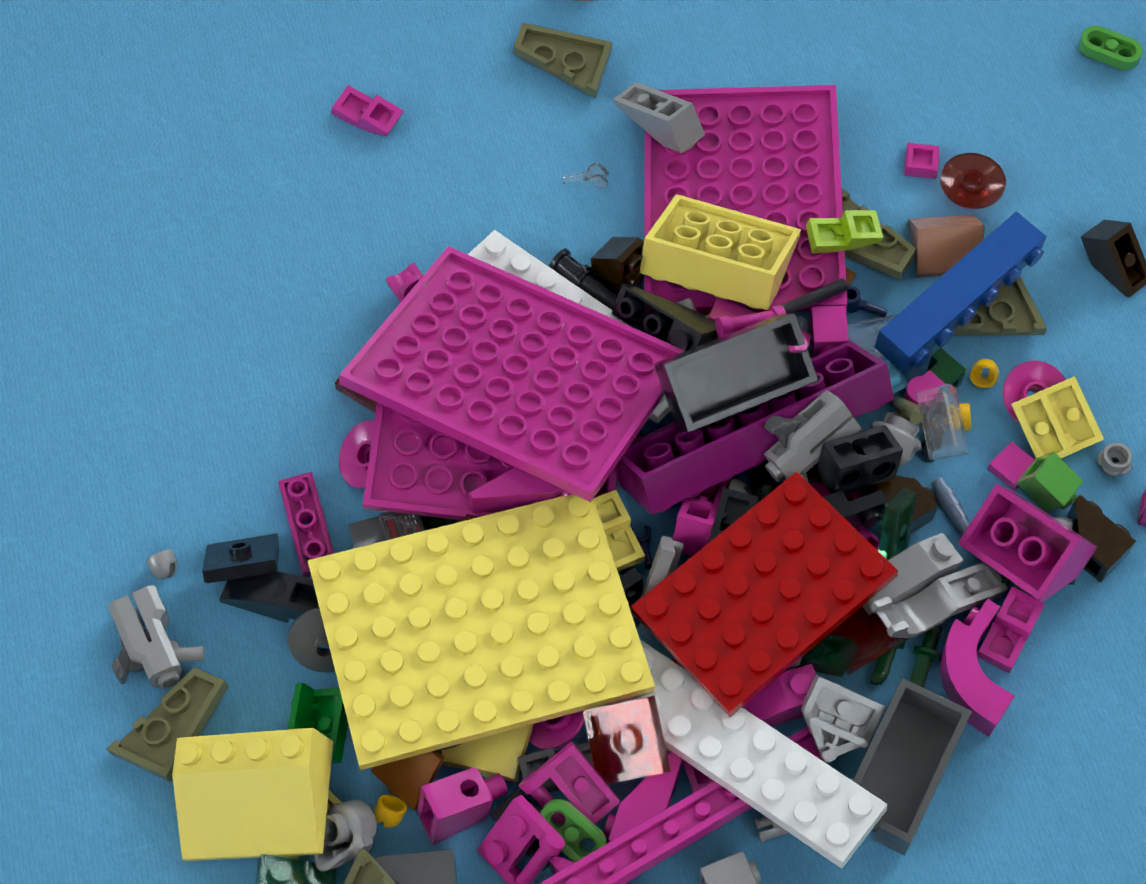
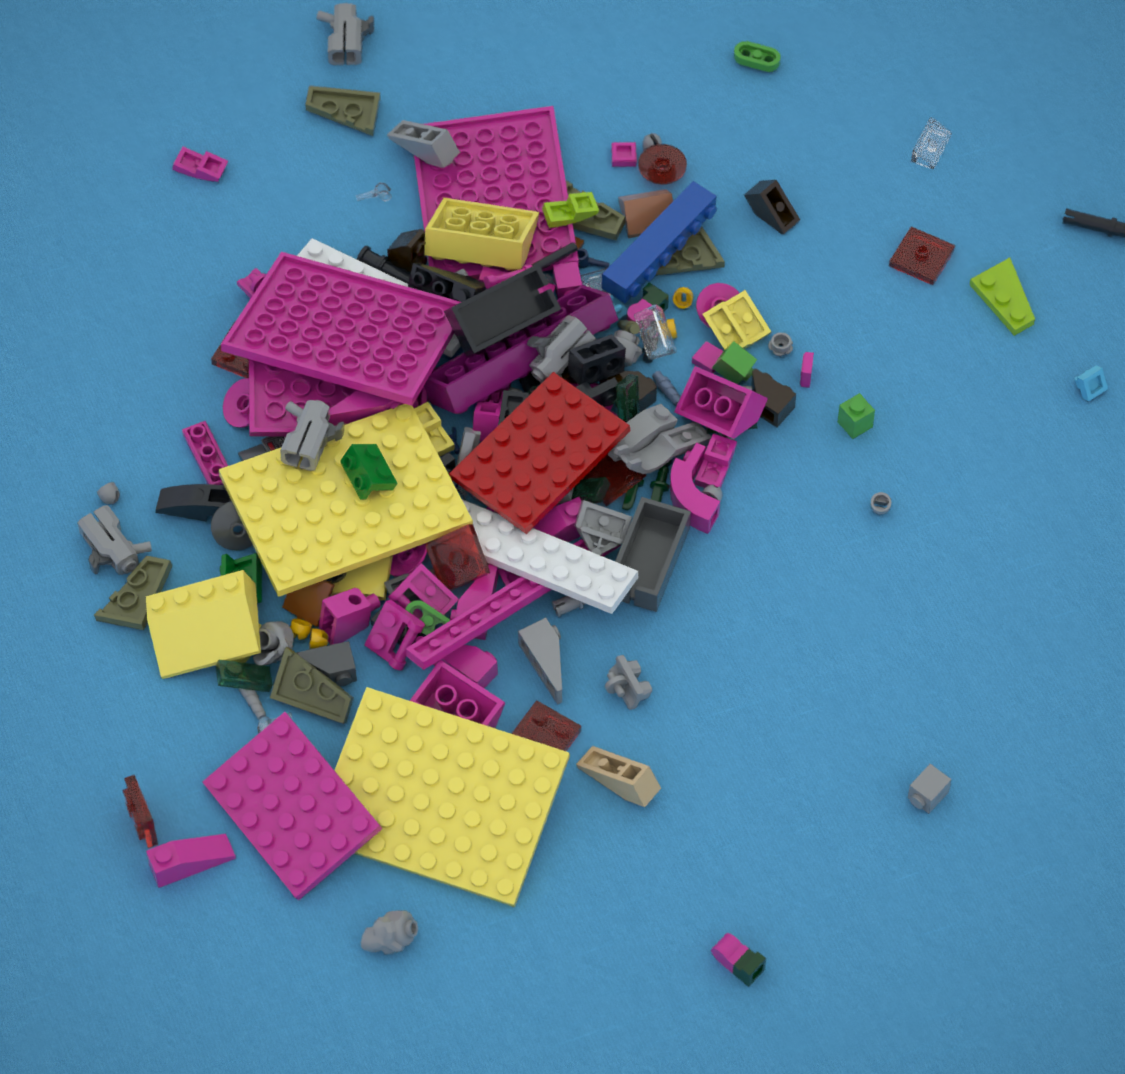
camera: 10 degrees left, 5 degrees down
(241, 558) = (167, 480): black plate -> none
(410, 828) = (318, 638): none -> yellow hinge
(441, 527) = (310, 434): none -> light grey piece
(515, 592) = (367, 469): none -> green bracket
(957, 144) = (648, 140): none -> light grey hinge
(1002, 676) = (711, 491): none -> light grey hinge

